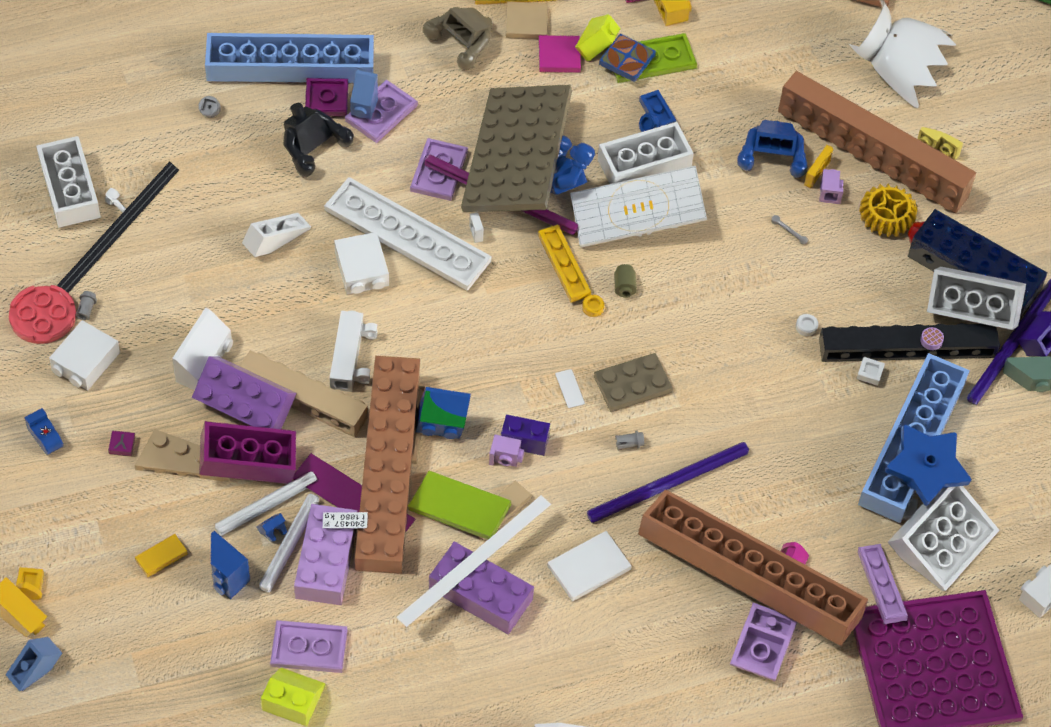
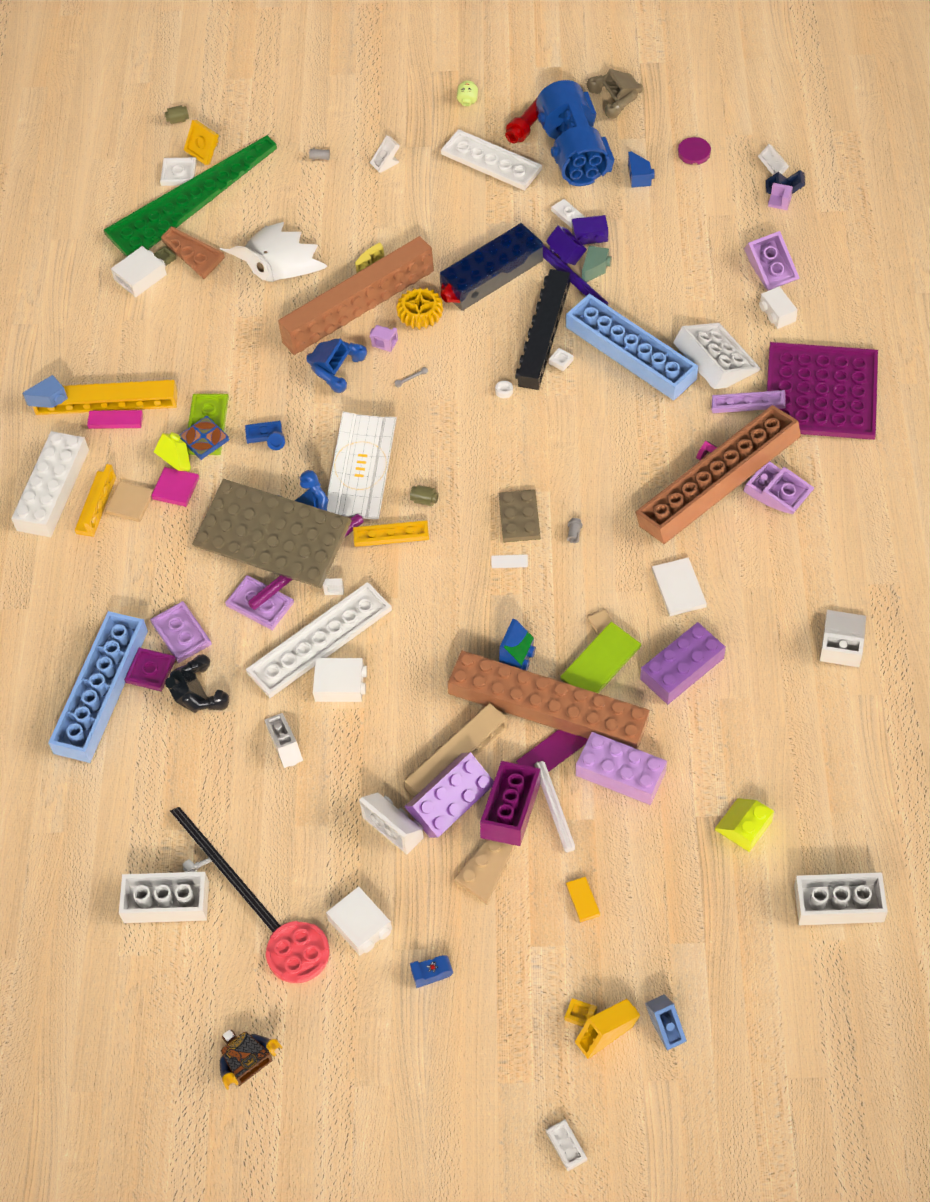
camera: 65 degrees left, 0 degrees up
(87, 300) = (303, 910): light grey pin -> none
(121, 443) = (459, 909): magenta tile -> none
(209, 106) = (122, 765): light grey tile -> none
(228, 567) = (615, 844): blue slope -> none
(268, 526) = (579, 804): blue tile -> none
(288, 544) = (598, 796): white axle -> none
(309, 646) = (700, 803): lavender tile -> none
(345, 519) = (602, 740): white sticker -> none
(346, 351) = (425, 710): white brick -> none
(364, 94) = (170, 633): medium blue slope -> none
(467, 26) = (125, 541): dark tan torso -> none
(473, 561) = (666, 657): white sticker -> none
(506, 451) = (560, 617): lavender brick -> none
(532, 433) = (549, 599): dark purple brick -> none
(593, 305) = (437, 525): yellow tile -> none
(645, 154) = (310, 446): white brick -> none
(667, 482) = (619, 516): dark purple axle -> none
(817, 168) = (361, 338): yellow tile -> none
(928, 463) = (668, 337): blue plate -> none
(932, 338) = (552, 309): lavender tile -> none
(976, 297) = (528, 270): white brick -> none

